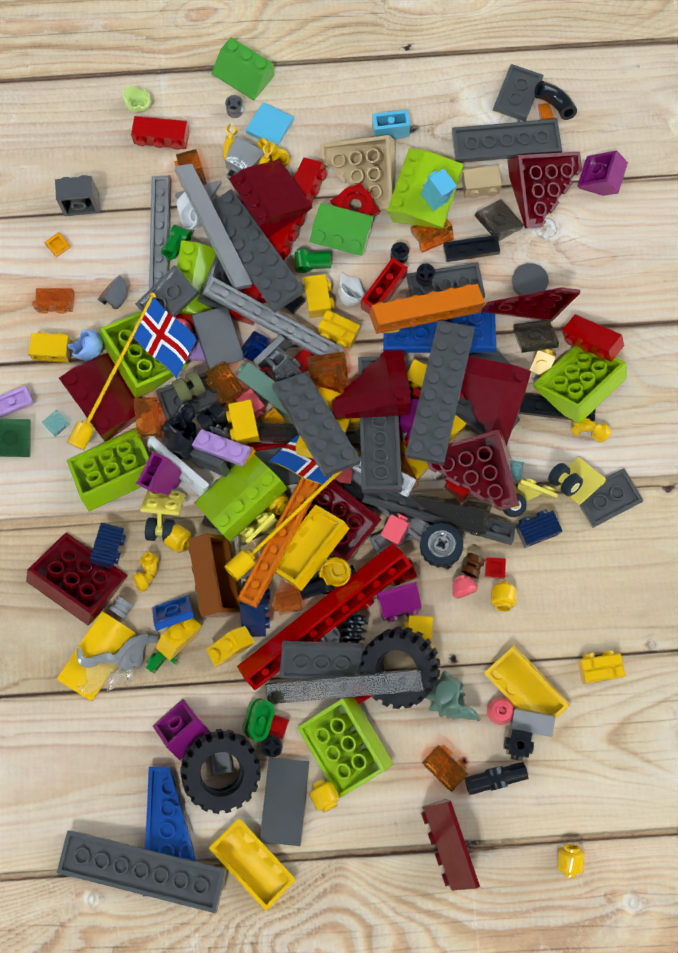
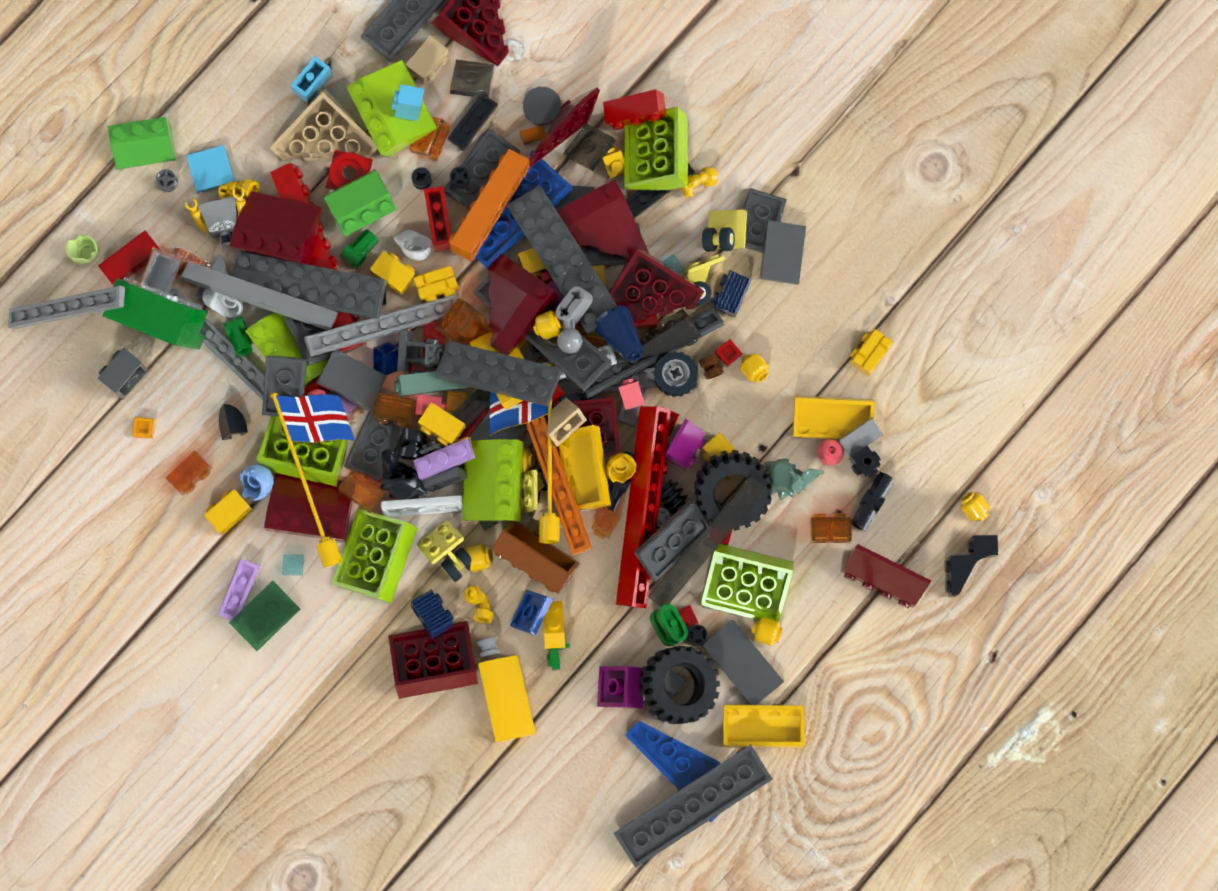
camera: 50 degrees left, 5 degrees up
(82, 116) = (66, 307): none -> light grey tile
(114, 667) = (529, 691): piece -> none
(136, 167) = (156, 311): none -> green piece
(159, 474) = (419, 524): magenta torso -> none
(182, 389) = (367, 444): olive wheel -> none
(230, 646) = (597, 594): yellow brick -> none
(256, 618) = (595, 560): dark blue brick -> none
(326, 500) = (563, 421): none -> tan slope
(384, 423) = (548, 325): none -> yellow head
(407, 427) = (570, 339): none -> light grey beam
(429, 475) = (620, 332): none -> dark blue cone
(463, 587) = (719, 389): coral cone -> none
(501, 292) = (532, 134): none -> orange piece
(515, 896) = (960, 566): none -> black arch
(604, 534) = (782, 252): none -> dark grey tile

